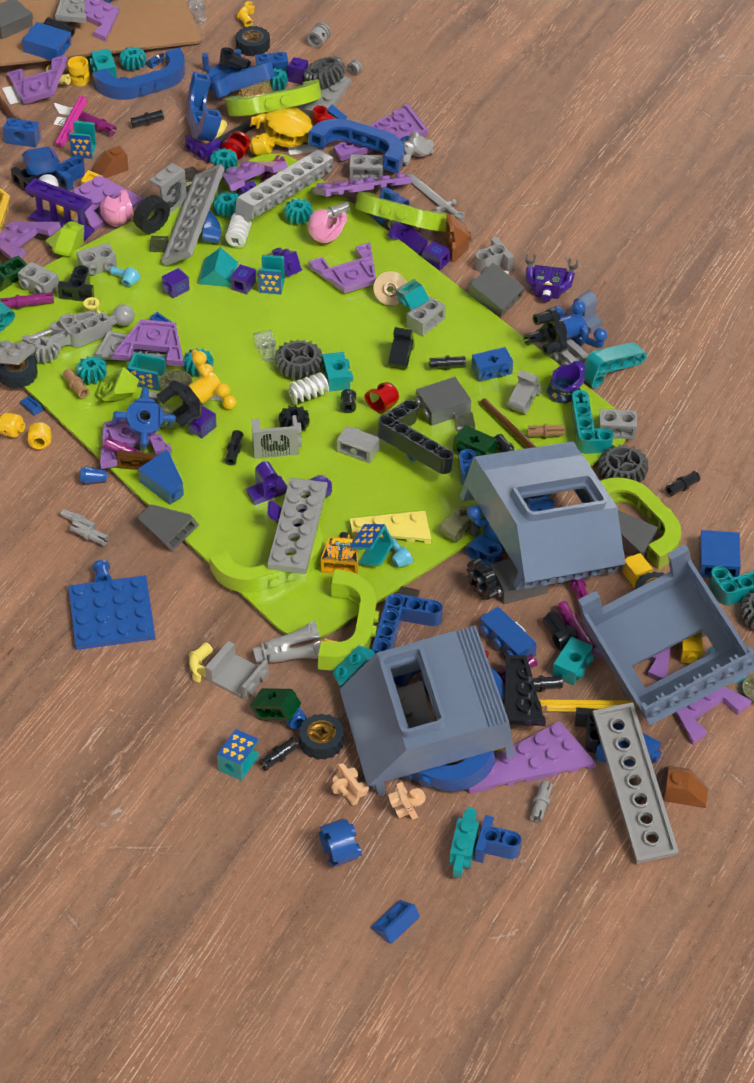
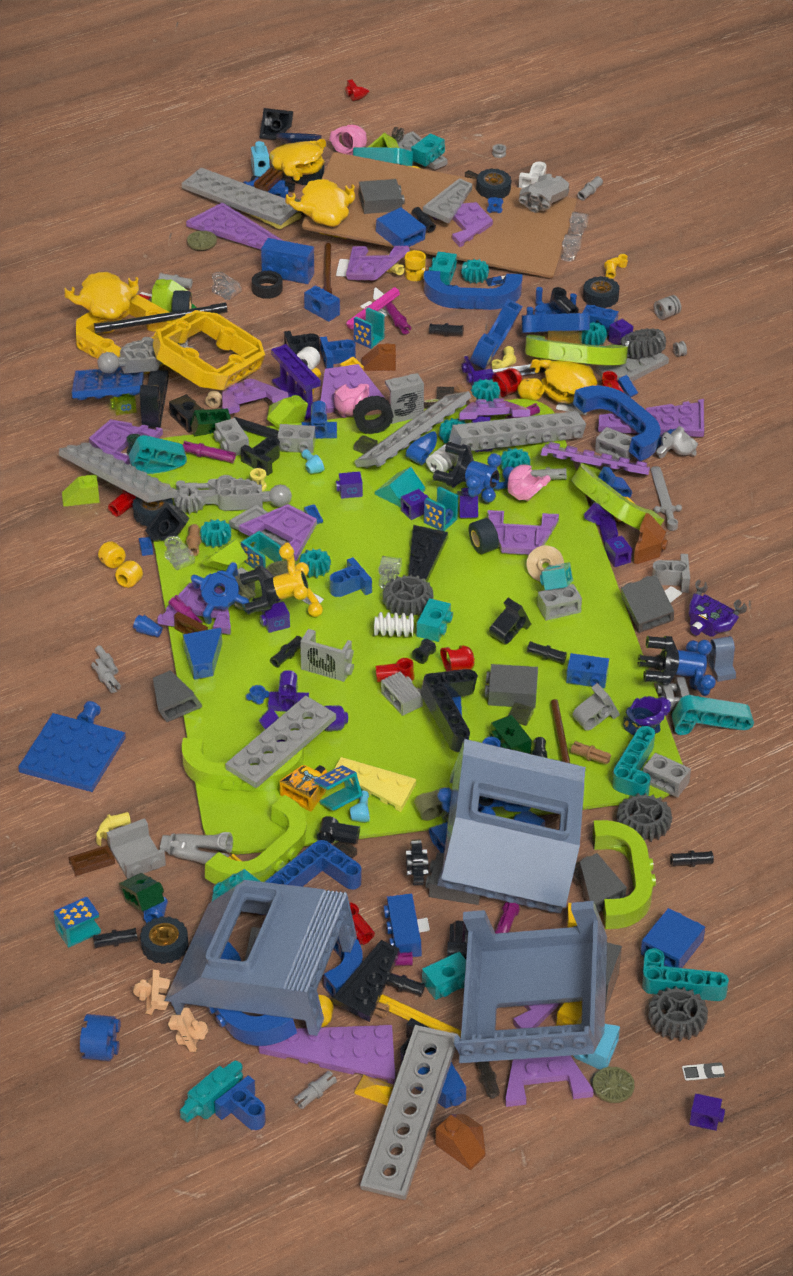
camera: 30 degrees right, 5 degrees down
(41, 160) = (314, 333): blue slope -> none
(44, 378) = (167, 523): none -> black slope
(55, 264) = (257, 428): none -> black axle
(72, 401) = (178, 553): none -> clear piece
(108, 234) = (319, 419): none -> blue tile
(206, 699) = (92, 861): none -> reddish brown tile
(237, 494) = (257, 694): none -> blue plate
(240, 363) = (350, 580): none -> blue tile
(277, 232) = (473, 473): none -> wheel
(282, 315) = (425, 550): none -> black wing
(302, 417) = (363, 647): black gear -> none
(324, 284) = (483, 535): none -> black wheel
(335, 428) = (404, 665): none -> red piece
(392, 583) = (332, 830): none -> black piece
(396, 921) = (102, 1133): blue slope -> none
(589, 779) = (374, 1089): none -> yellow slope
(664, 727) = (488, 1079): none -> clear smoke axle

